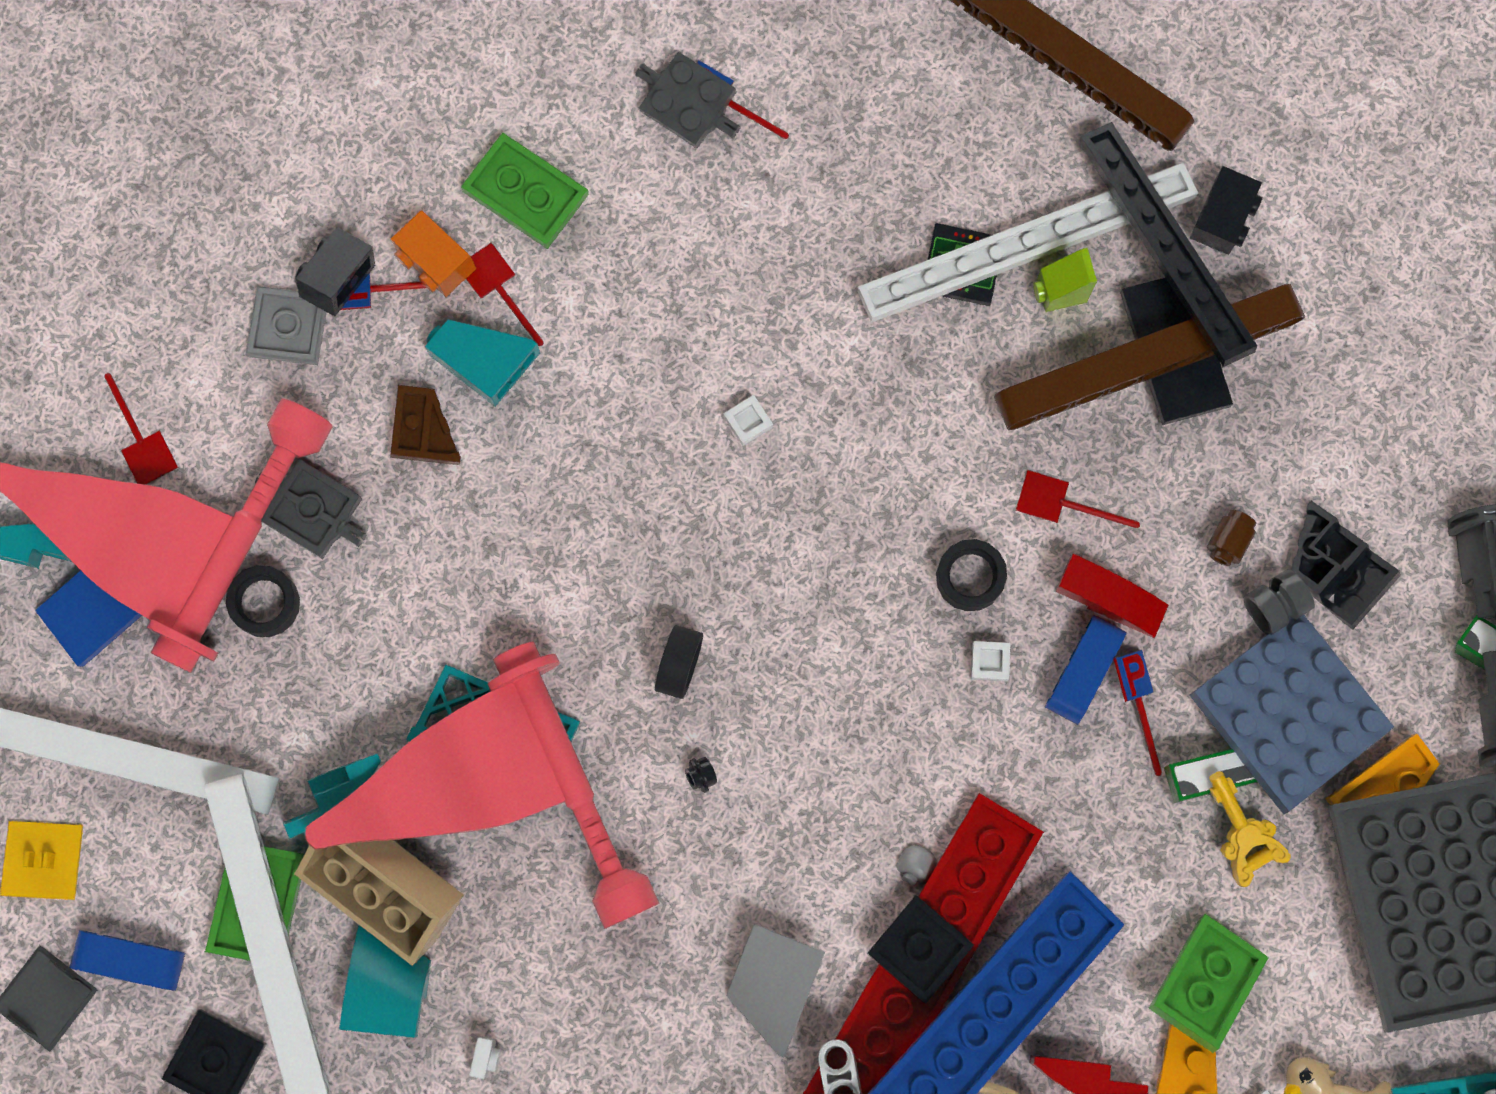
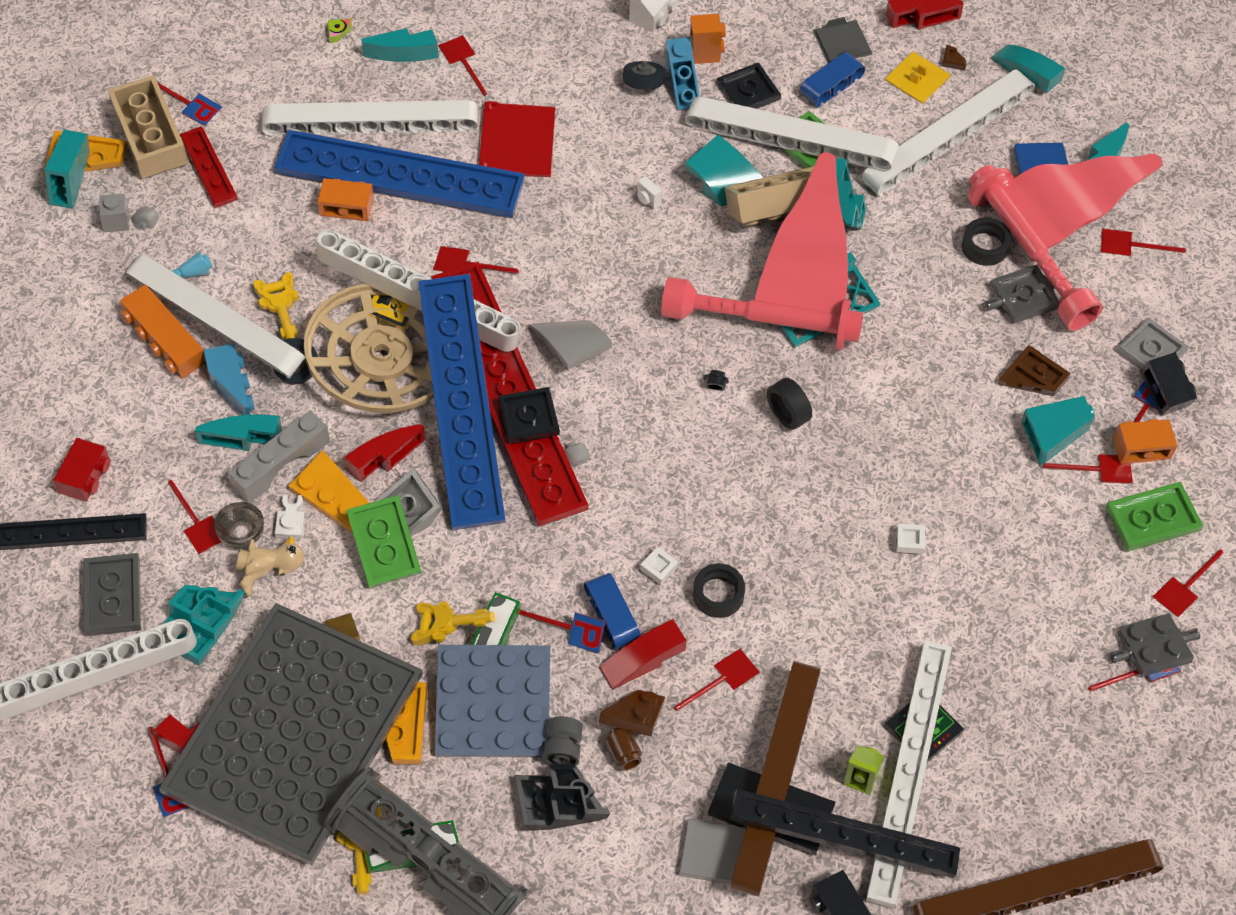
camera: 125 degrees right, 20 degrees down
(604, 116) = (1177, 596): none -> red piece
(1128, 998) = (416, 500): none -> light grey slope
(1187, 551) = (635, 712): none -> reddish brown wing
(1267, 377) = (711, 851): none -> light grey tile
(1336, 946) = (344, 624): none -> pearl gold tile

